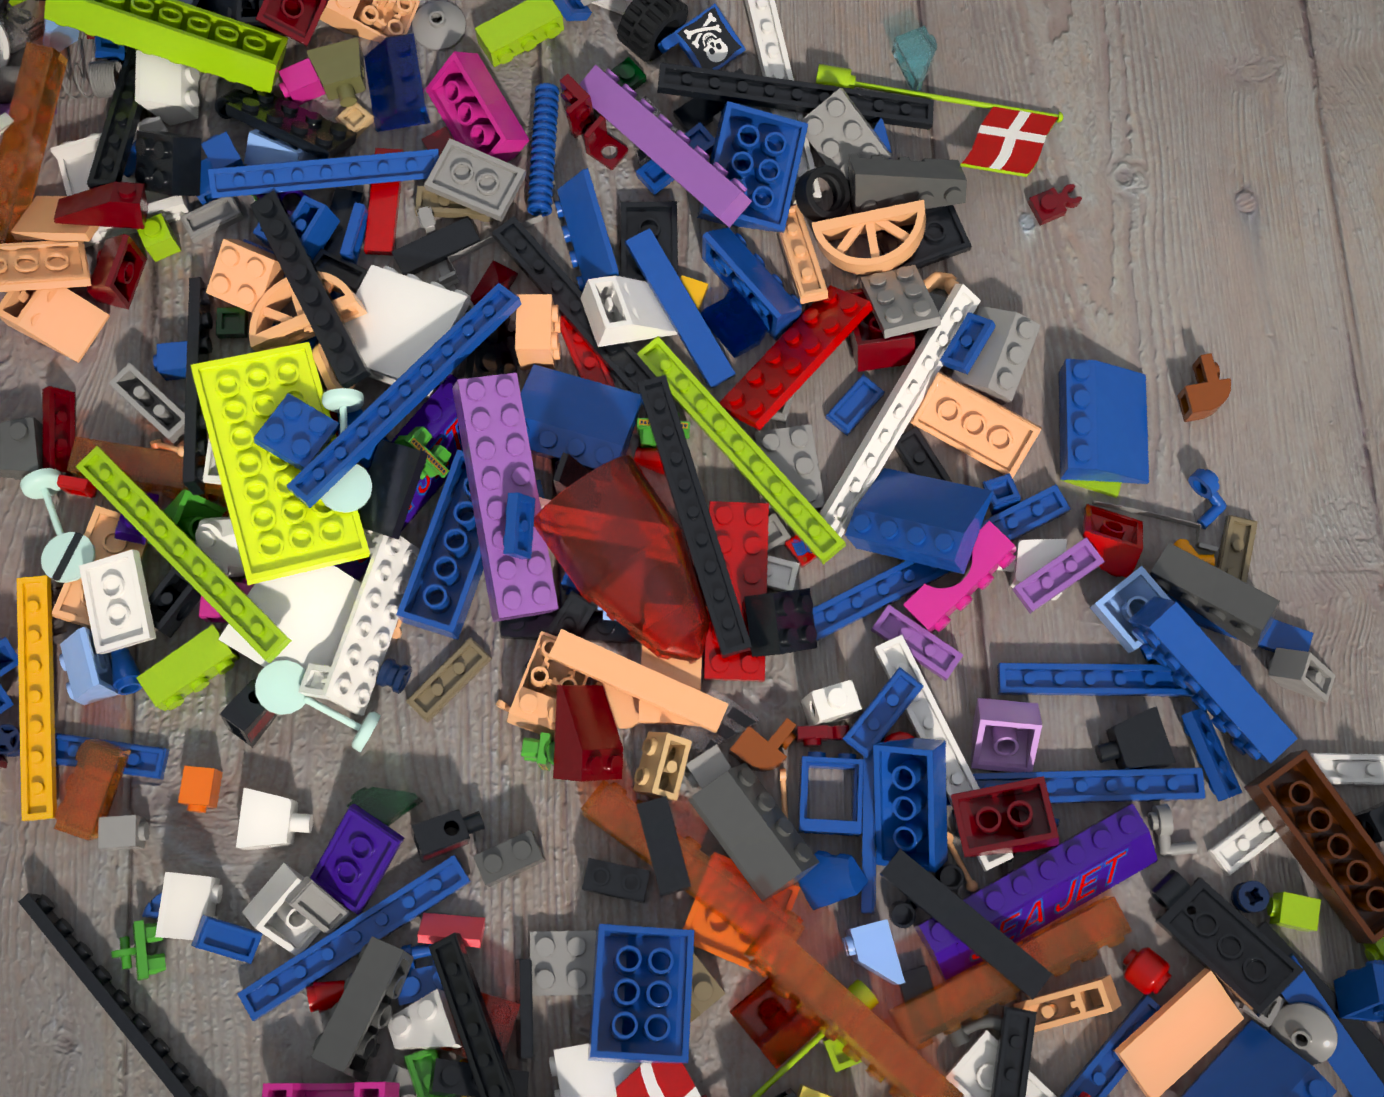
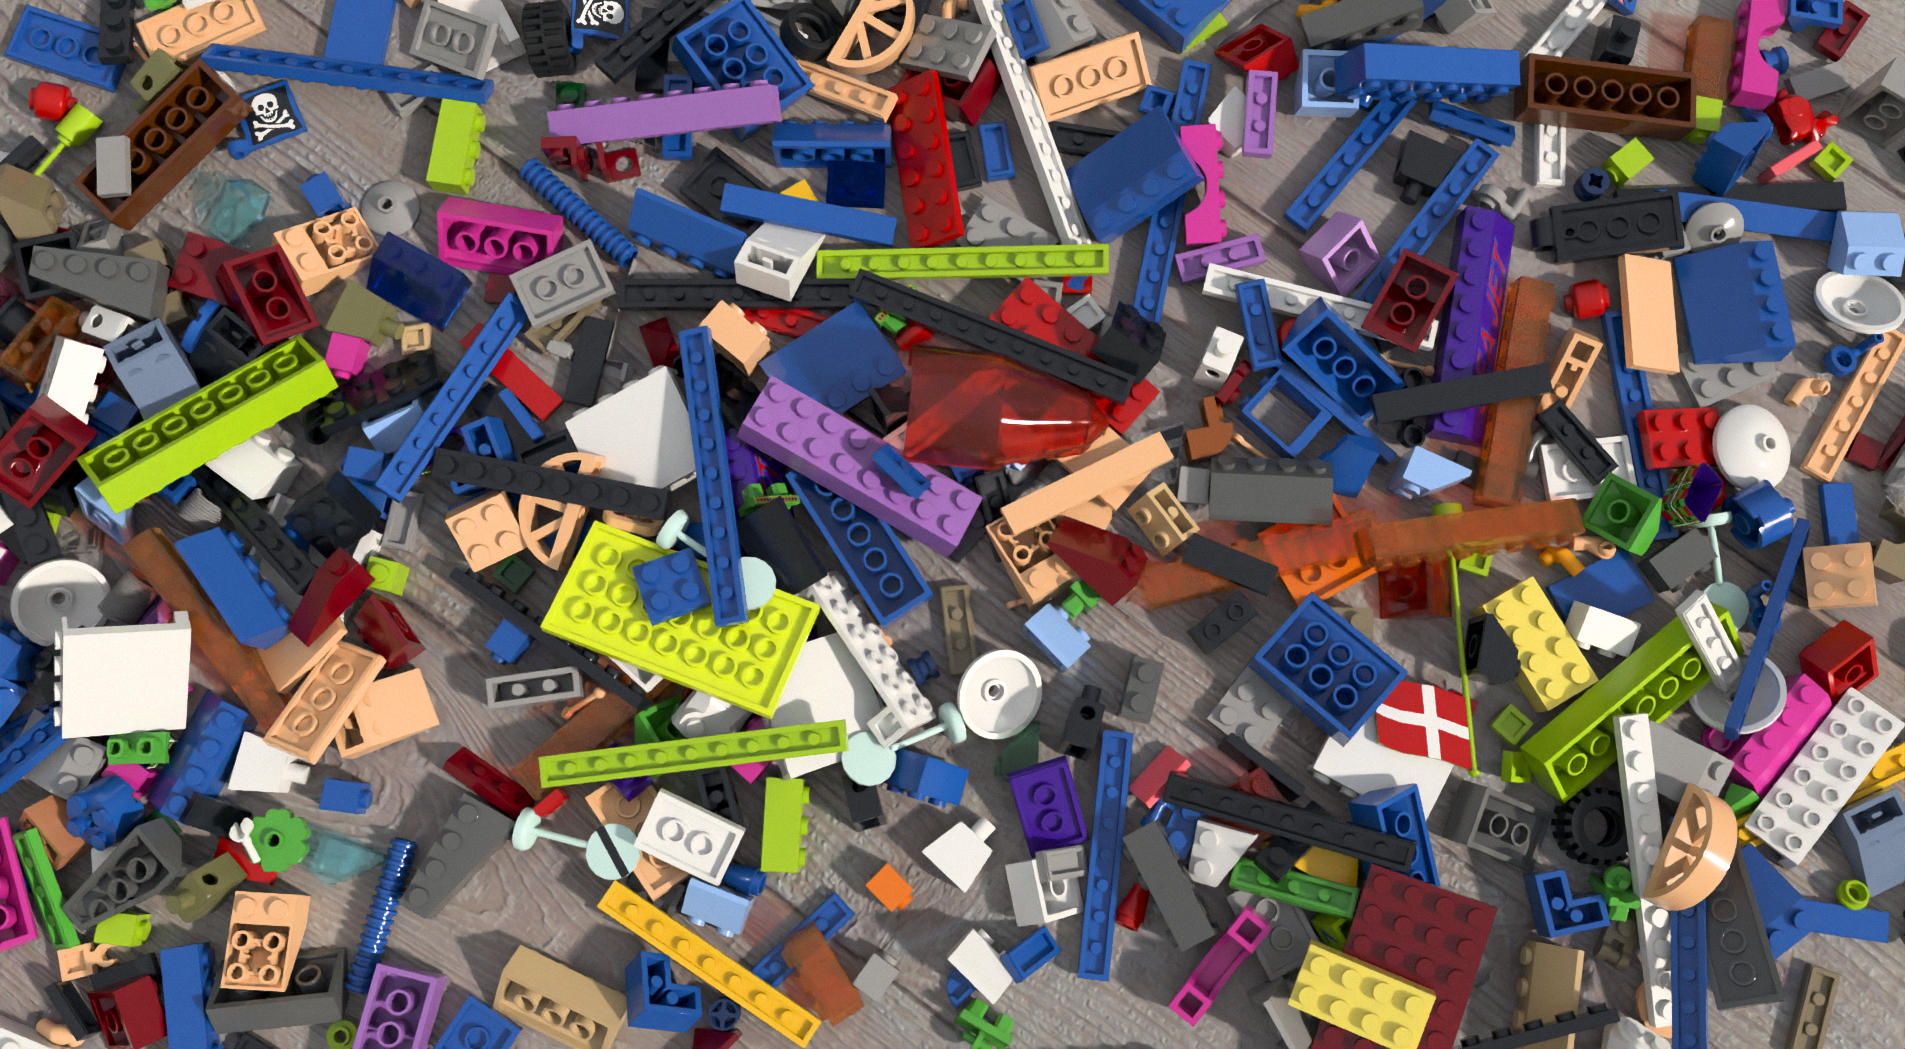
camera: 55 degrees left, 5 degrees up
(60, 140) = (236, 587): none -> blue slope
(305, 745) = (927, 777): none -> blue brick
(412, 765) = (1012, 701): none -> white dish
(498, 757) = (1056, 637): none -> light blue slope
(824, 385) = (964, 161): none -> black tile

